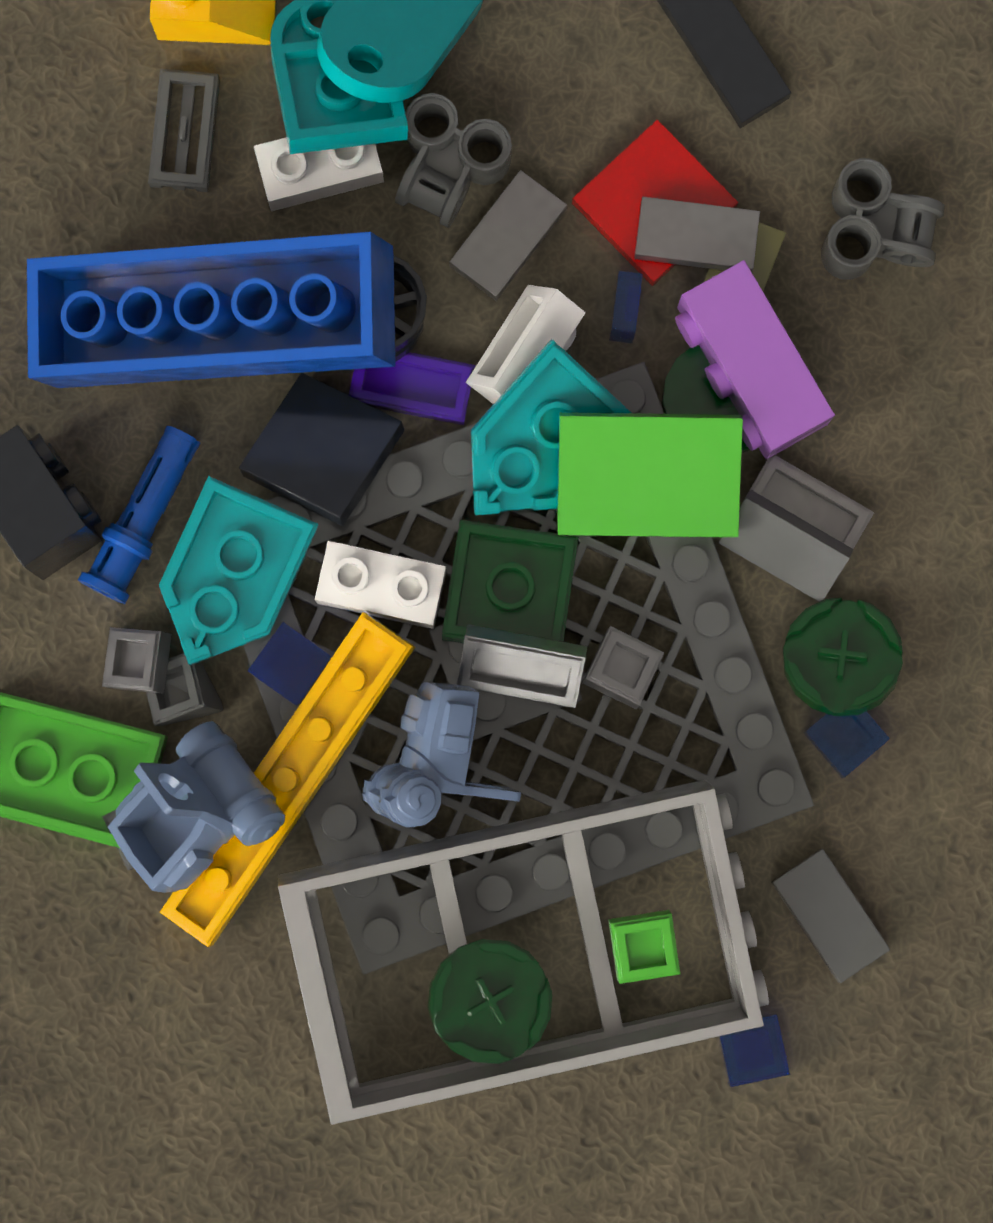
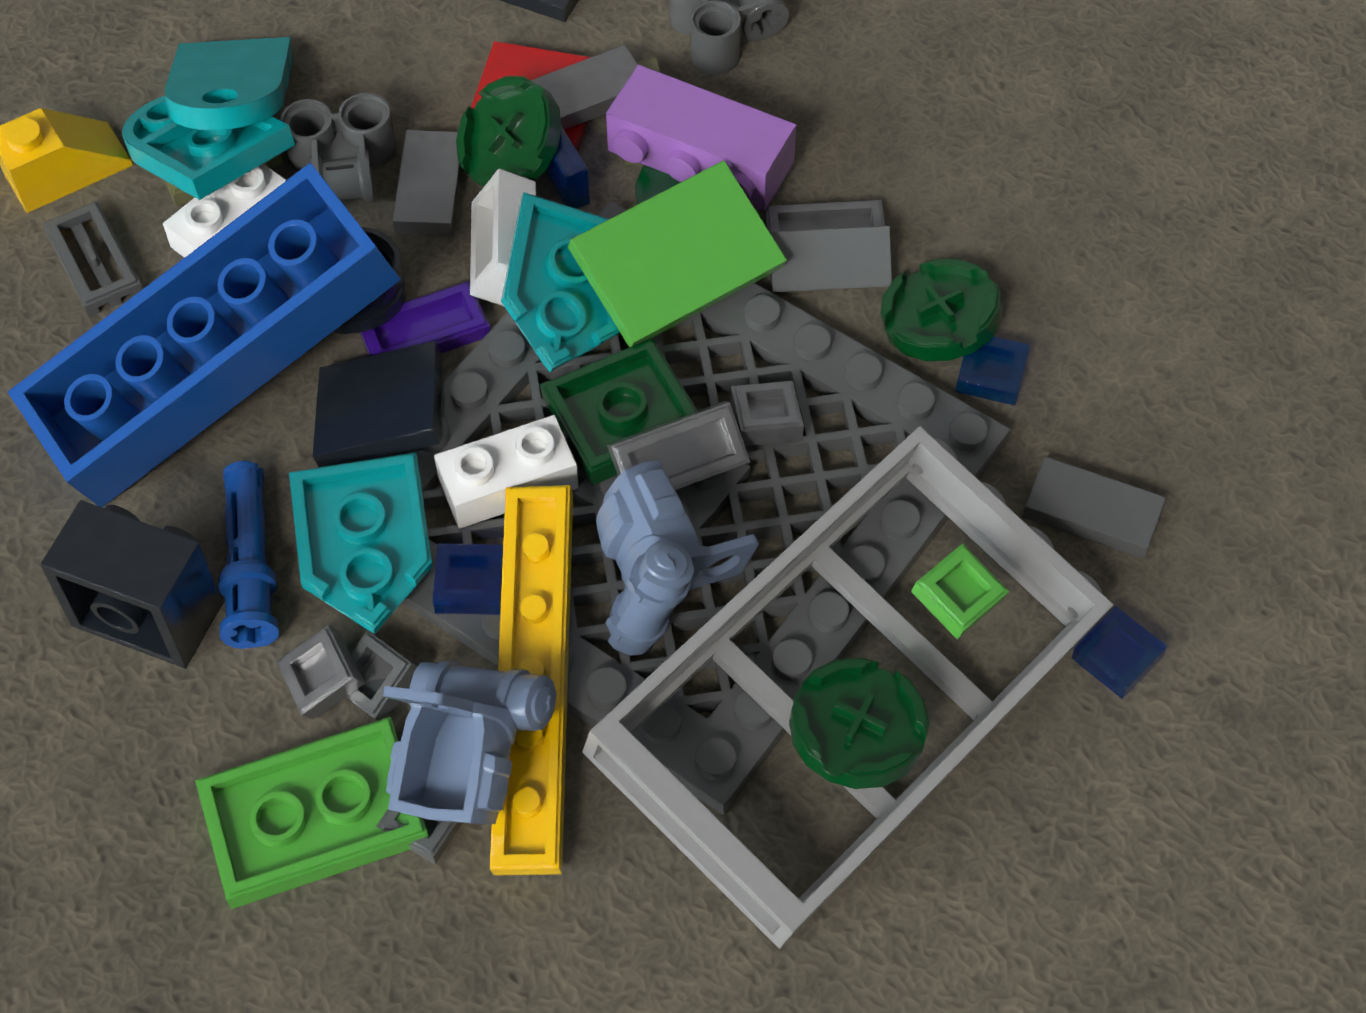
camera: 30 degrees left, 25 degrees down
(595, 247) = (509, 129): none -> dark green tile

